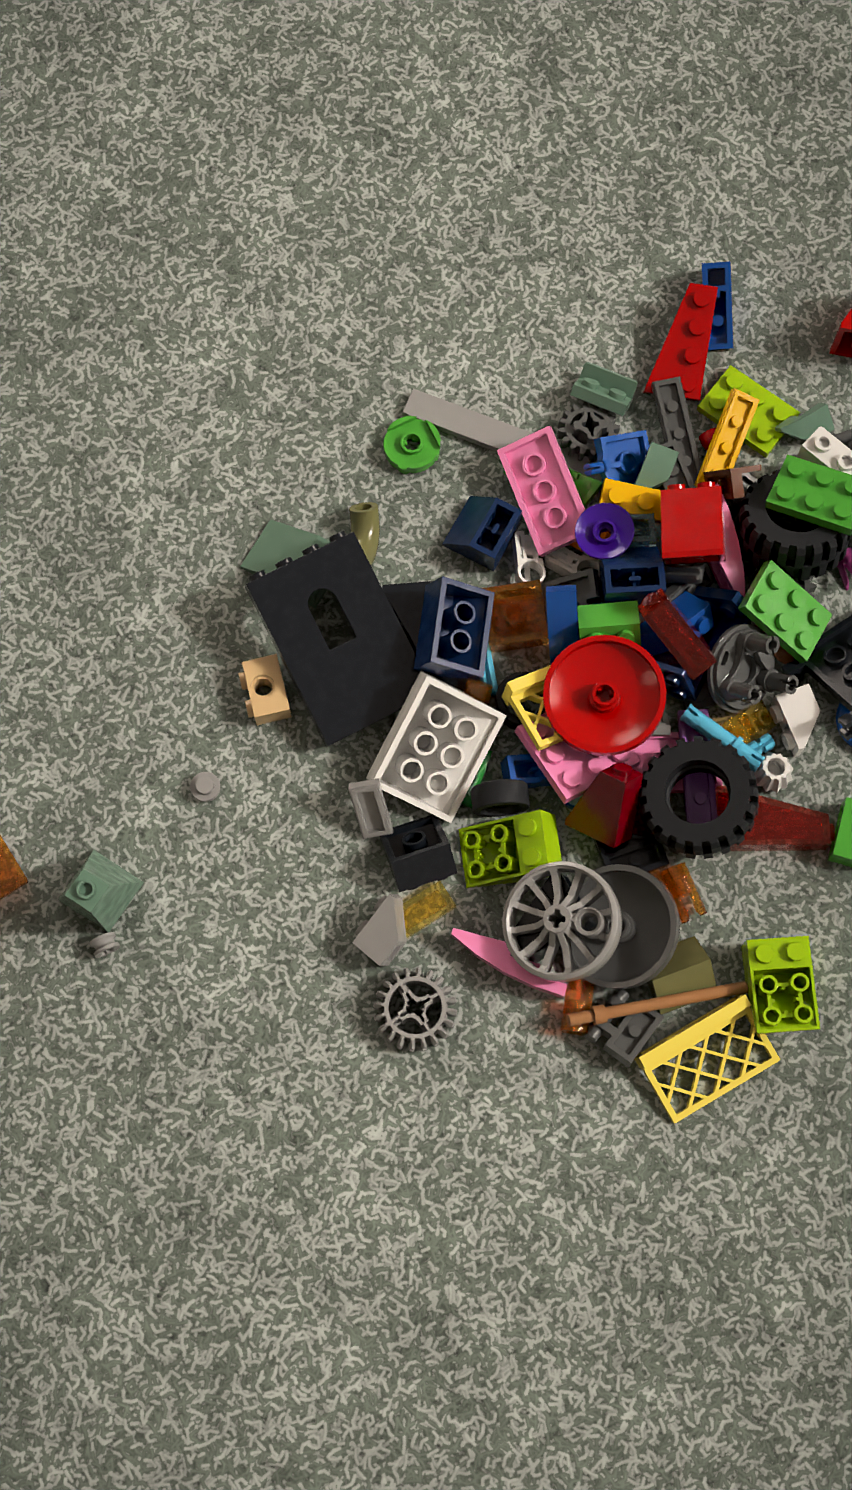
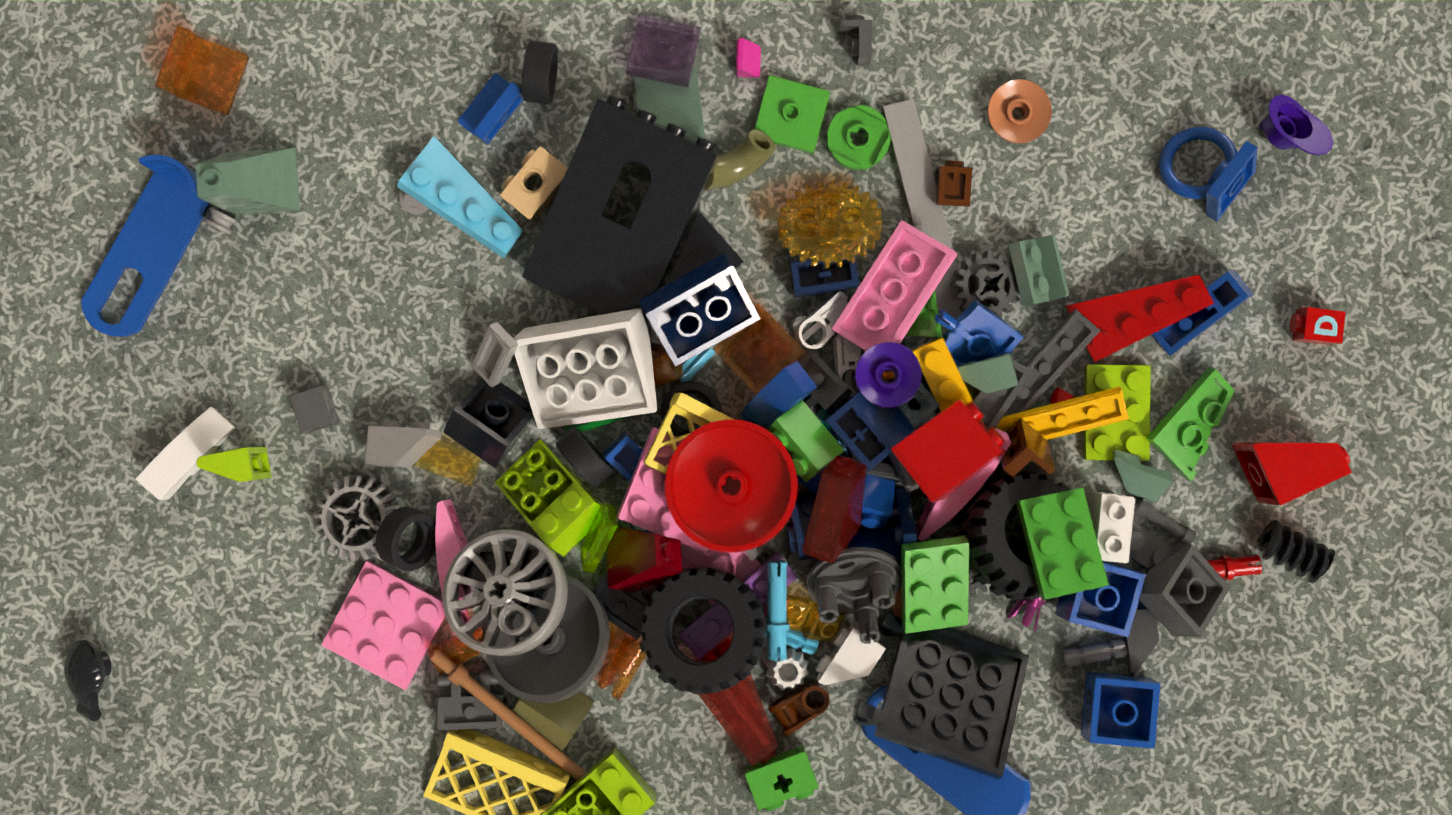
camera: 55 degrees right, 15 degrees up
(75, 1010) = (148, 242): none -> blue piece
(182, 683) = (491, 108): none -> blue panel
(187, 624) = (539, 72): none -> black tyre
(231, 753) = (455, 195): none -> medium azure wing
(241, 531) = (663, 51): none -> clear purple plate
(263, 1107) = (179, 457): none -> white slope
(293, 480) = (748, 59): none -> dark pink slope
(304, 979) = (314, 408): none -> dark grey brick
(304, 1064) = (238, 464): none -> lime tile
(345, 393) = (862, 43): none -> dark grey bracket
(357, 477) = (792, 113): none -> bright green plate
(378, 1322) = (85, 675): none -> black animal
(461, 501) = (829, 224): none -> clear yellow gear
(462, 977) = (389, 536): none -> black tyre
(479, 314) = (1030, 100): none -> nougat dish
(497, 402) = (954, 184): none -> reddish brown bracket
(516, 1052) = (386, 625): none -> bright pink plate
(569, 832) = (598, 537): none -> clear neon green tile
(631, 161) = (1294, 127): none -> dark purple piece
(634, 224) = (1226, 179): none -> blue tile
(785, 238) = (1318, 326): none -> red brick
(793, 370) = (1187, 426): none -> bright green wing
(809, 786) = (798, 707): none -> reddish brown piece

